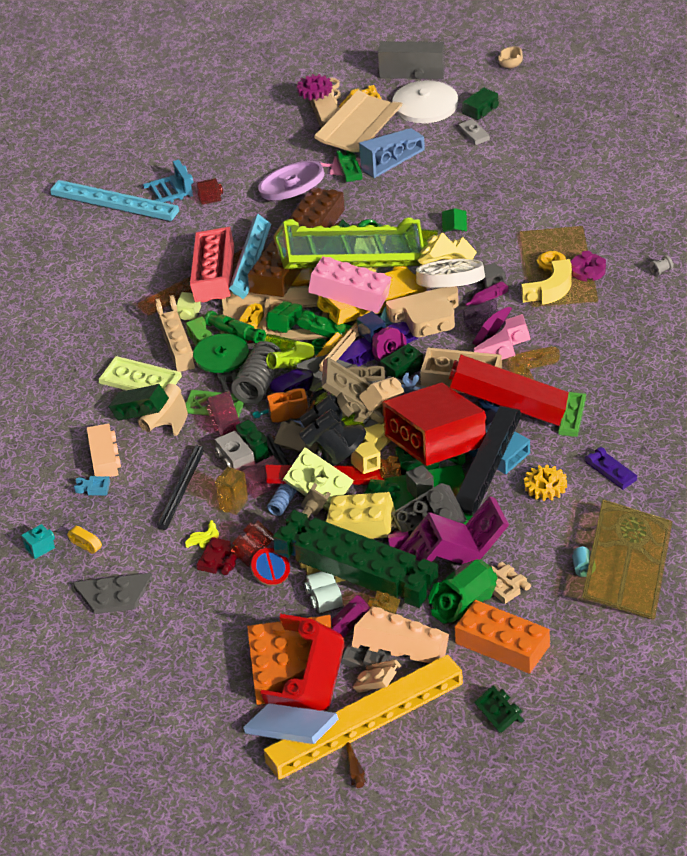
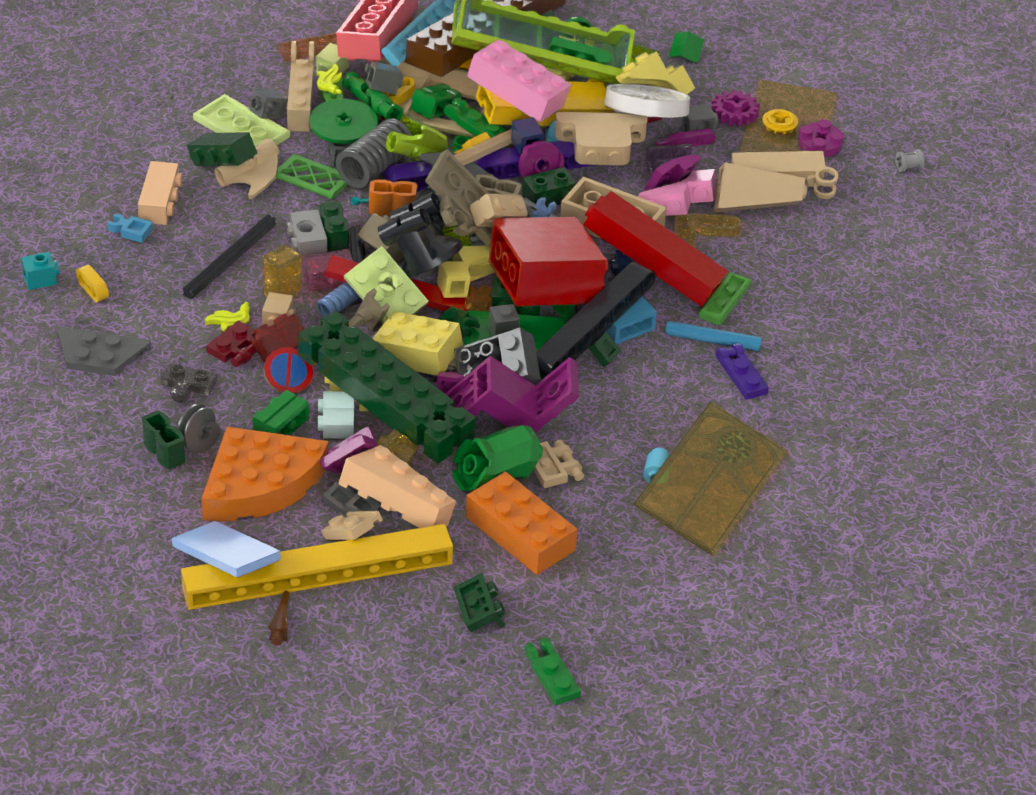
camera: 10 degrees right, 0 degrees up
(155, 355) = (268, 103): none -> dark grey brick
(194, 322) = (327, 79): none -> neon yellow piece
(194, 597) = (187, 380): none -> clear smoke plate
(201, 650) = (163, 439): none -> dark green brick
(223, 634) = (199, 428): none -> dark grey piece
(224, 413) = (314, 186): clear pink brick -> none
(239, 309) = (383, 77): none -> dark grey brick
(239, 519) = (275, 306): none -> tan brick
(281, 600) = (282, 414): none -> green brick
(321, 669) = (286, 497): red windscreen -> none
(382, 247) = (579, 50): none -> green hinge
(502, 480) = (604, 349): none -> dark green plate
(513, 259) = (735, 108): none -> magenta gear
(545, 482) = (655, 365): yellow gear -> none
(552, 288) = (782, 140): light yellow arch -> none
(557, 320) = (756, 188): none -> tan slope
(571, 300) = (797, 163): none -> tan hinge
(576, 446) = (712, 335): none -> dark azure axle
(576, 746) = (552, 673): none -> green hinge

